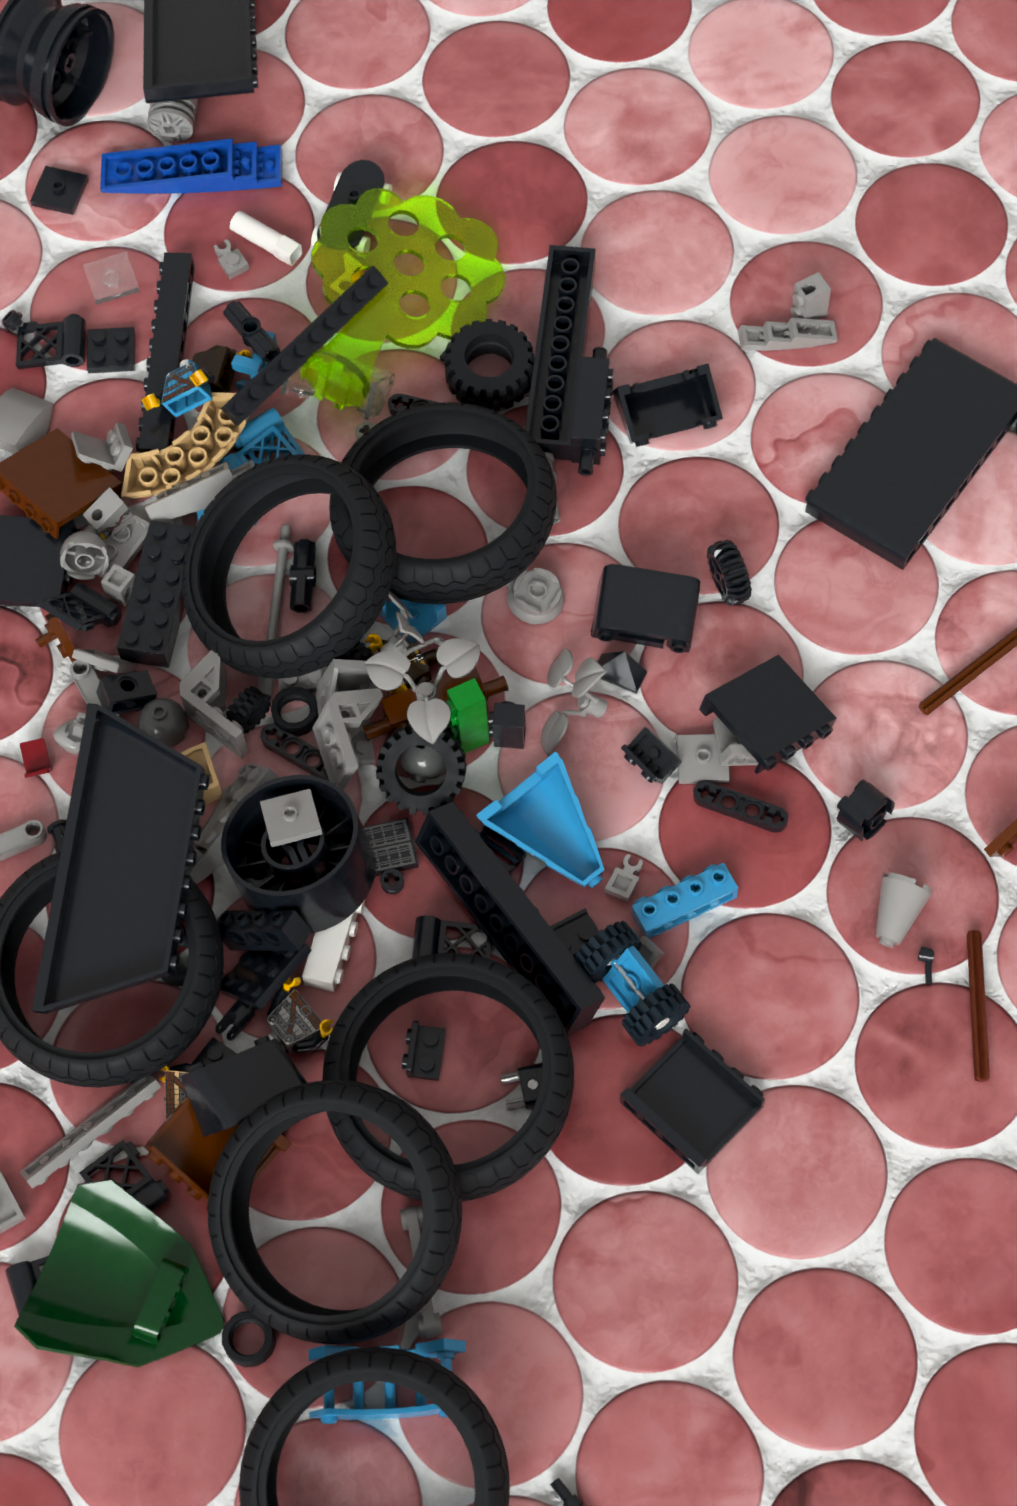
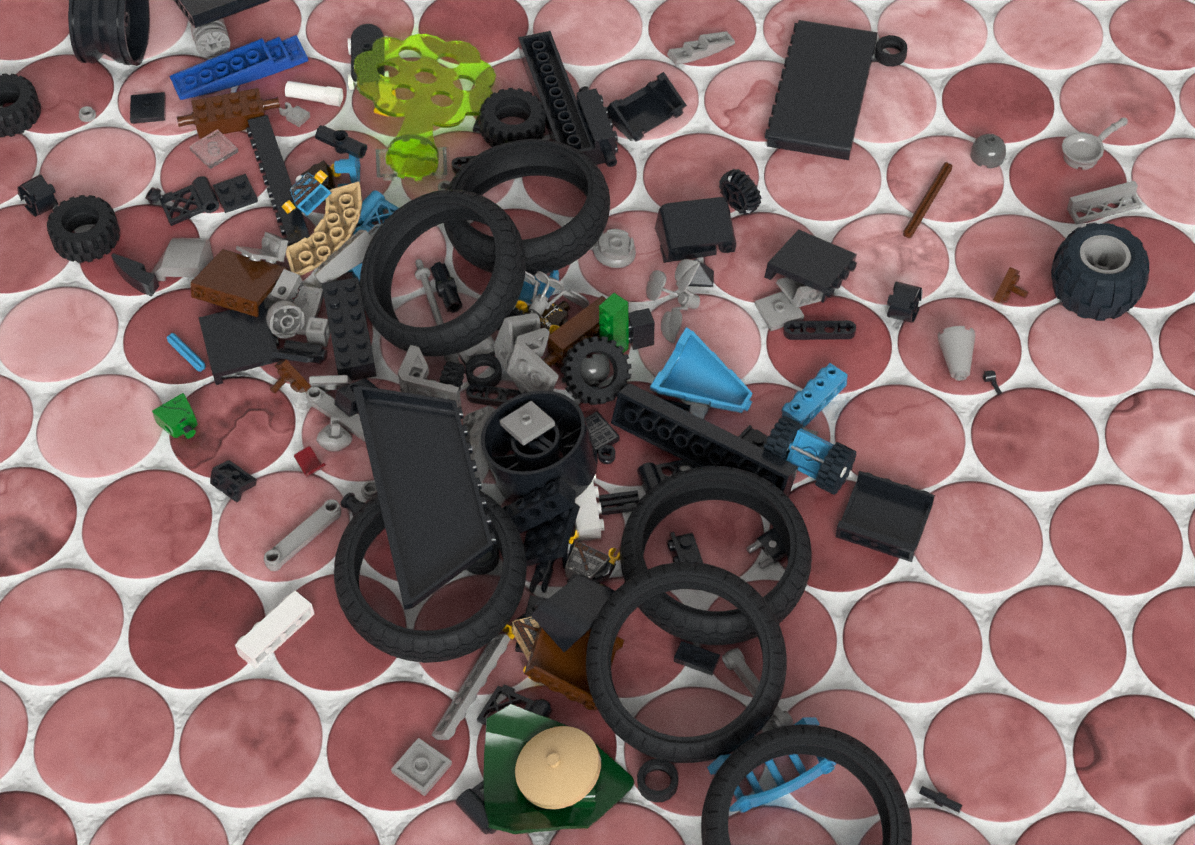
camera: 25 degrees left, 10 degrees down
(131, 1281) = (558, 767): none -> tan dish
(147, 231) = (227, 112): none -> reddish brown brick
(301, 348) = (382, 141): black plate -> none
(353, 957) = (619, 500): none -> black tile
(369, 1199) = (696, 658): none -> black plate
(428, 714) = (594, 326): light grey plant -> none
(624, 881) = (766, 398): light grey plate -> none
(651, 756) = (745, 317): black bracket -> none
(811, 298) = (707, 18): light grey brick -> none
(978, 1006) = (1039, 395): copper axle -> none

